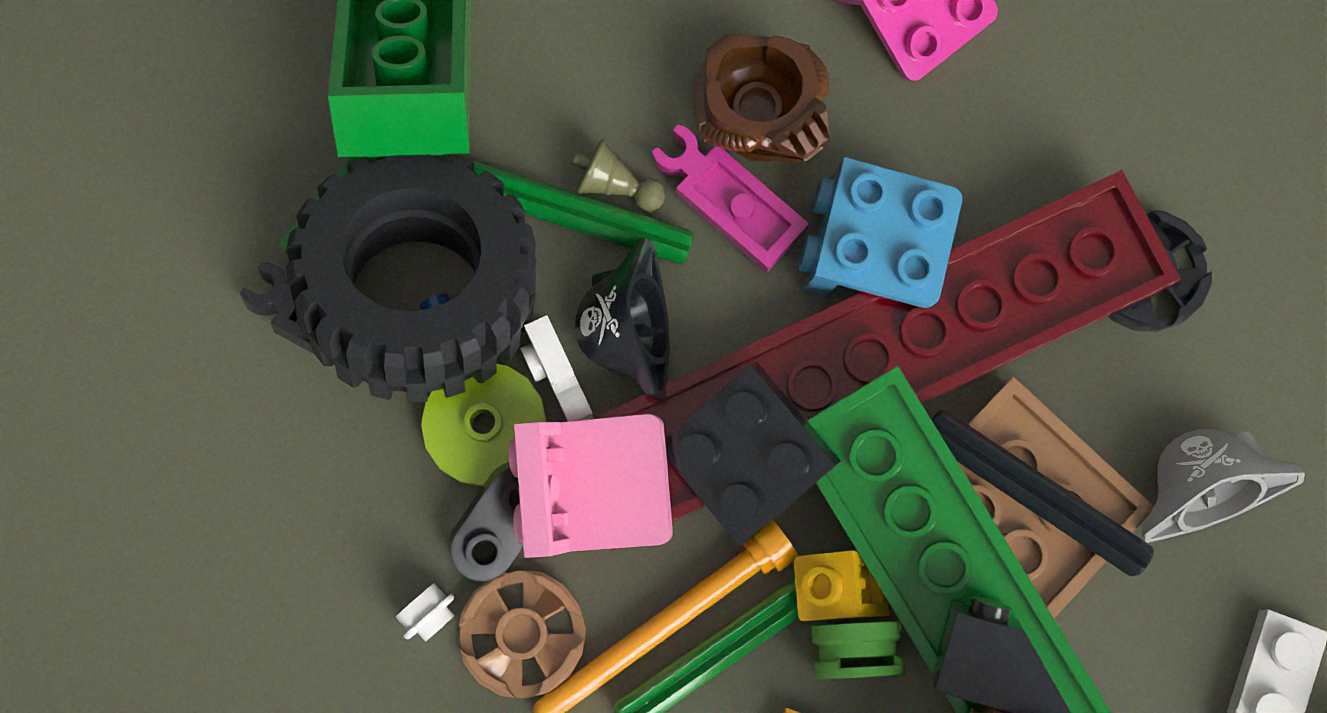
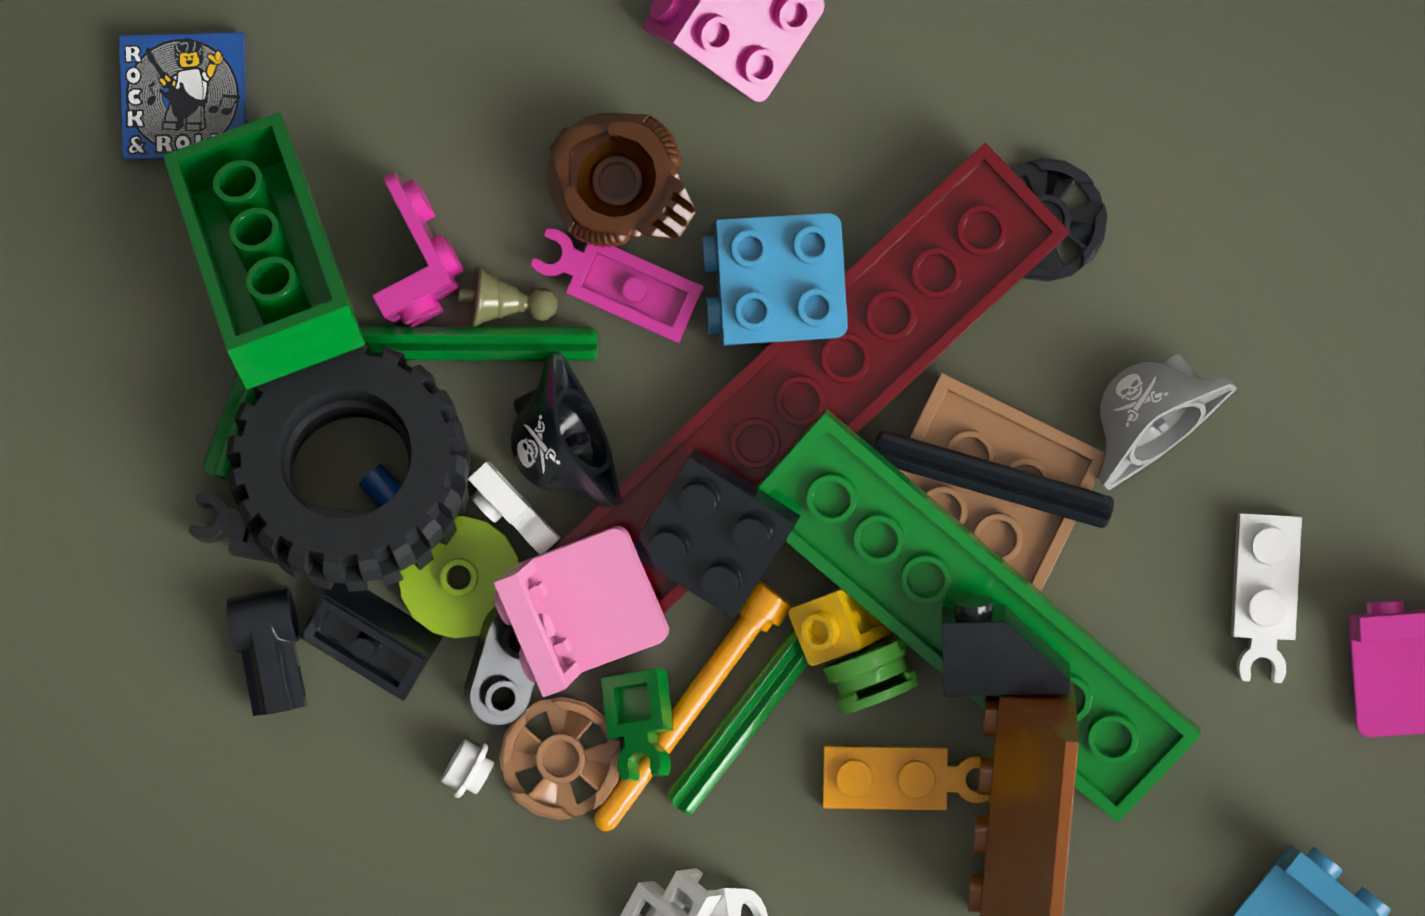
camera: 20 degrees left, 10 degrees up
(276, 418) = (265, 633): none -> black piece
(378, 455) = (371, 638): none -> black slope
(546, 133) = (418, 295): none -> dark pink bracket
(611, 611) = (637, 711): none -> green plate

